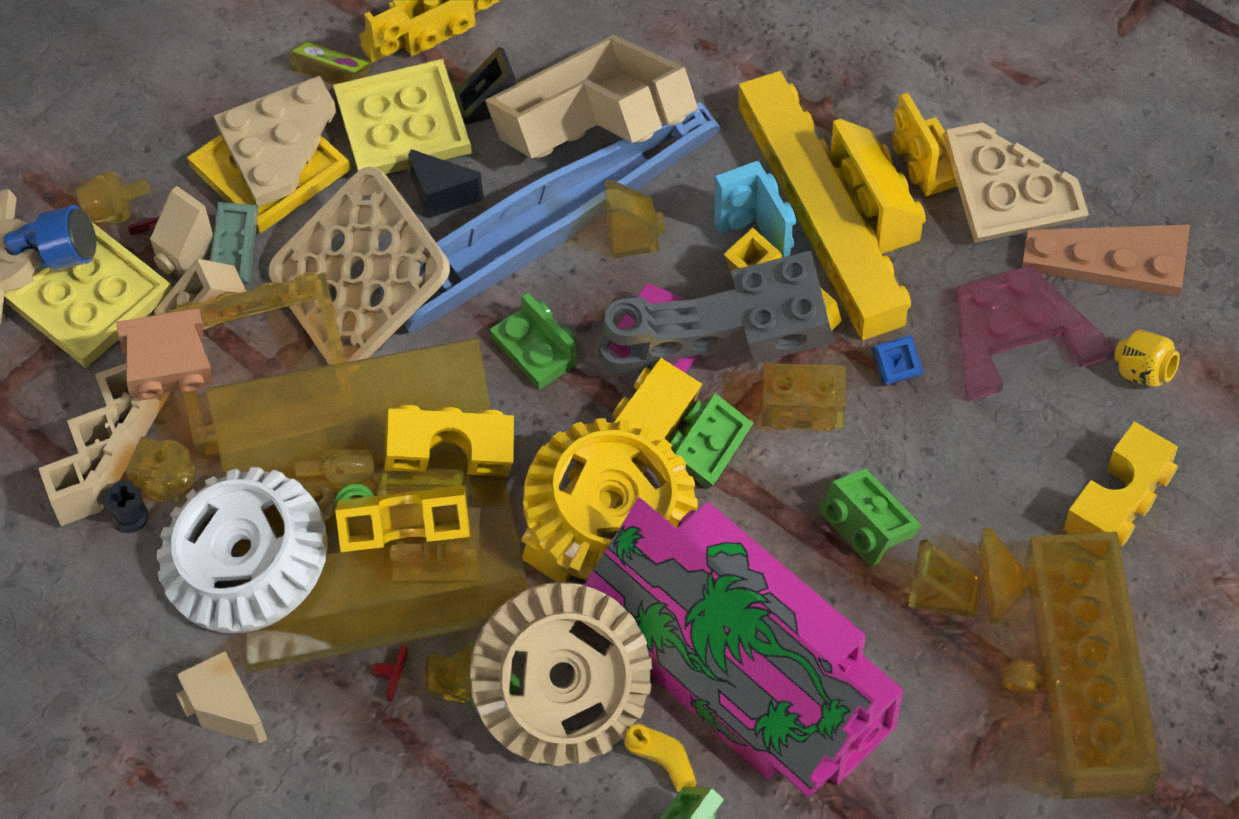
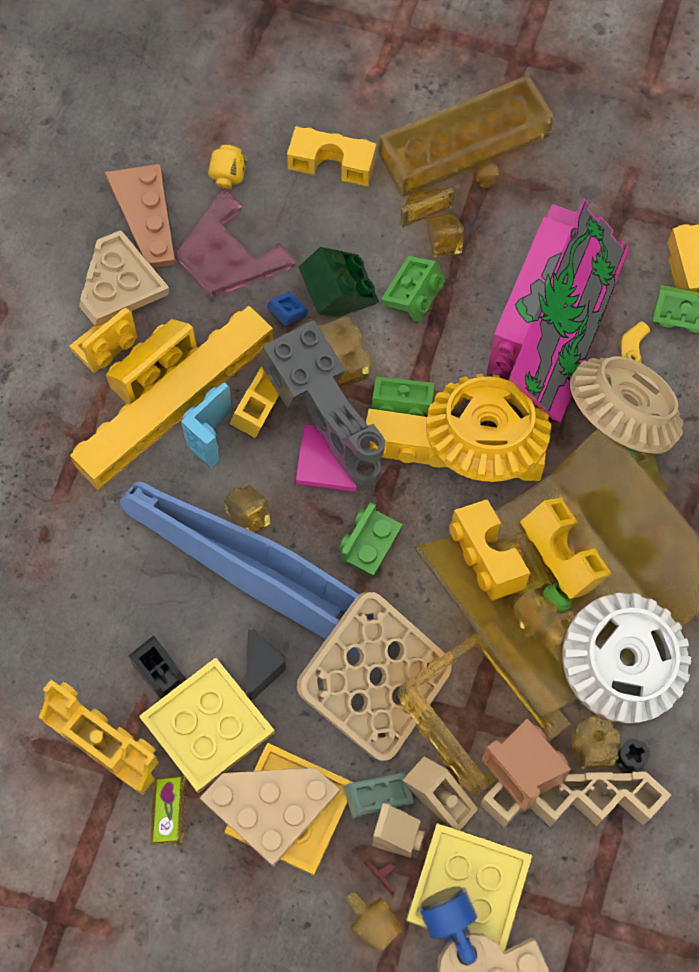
camera: 115 degrees left, 10 degrees up
(602, 85) = (136, 569): tan piece -> none
(911, 428) = (337, 282): none -> dark green slope

